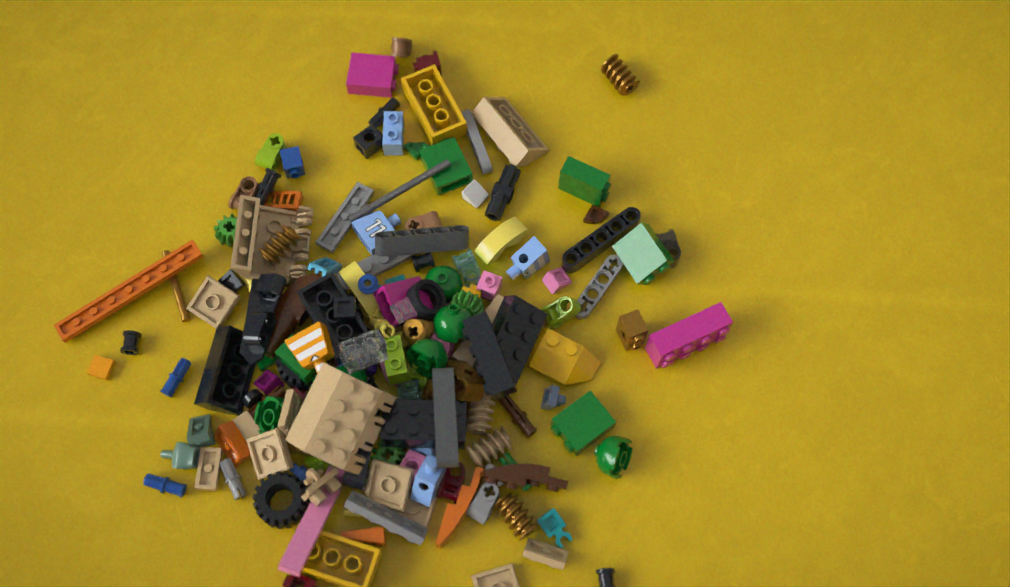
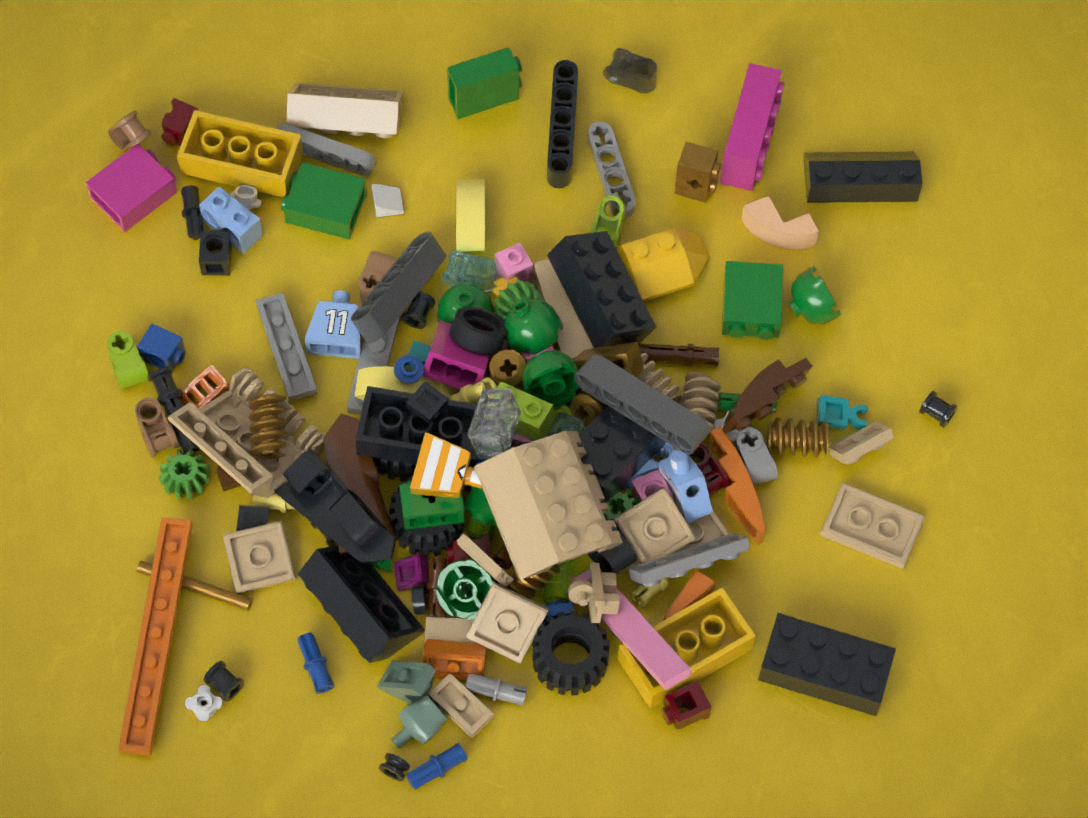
camera: 50 degrees left, 5 degrees down
(101, 367) = (222, 737): light orange tile -> none
(115, 348) = (203, 712): none -> white plate
(146, 464) = (394, 767): none -> black bush
(322, 266) = (323, 411): medium azure tile -> none
(367, 209) = (304, 314): flat silver bar -> none
(403, 310) = (476, 356): clear plate -> none
(413, 149) = (271, 215): green tile -> none
(414, 129) = (246, 196): none -> white plate
(489, 356) = (612, 311): black brick -> none
(502, 192) = (413, 171): black piece -> none
(528, 259) = (521, 204): light blue torso -> none
(552, 398) = (696, 307): sand blue tile -> none
(556, 280) = (565, 203): bright pink slope -> none
(595, 215) = (526, 108): reddish brown tile -> none
(637, 393) = (766, 224): none -> light nougat brick
(643, 254) = (621, 95): brick -> none
(719, 418) = (862, 177): none -> black slope

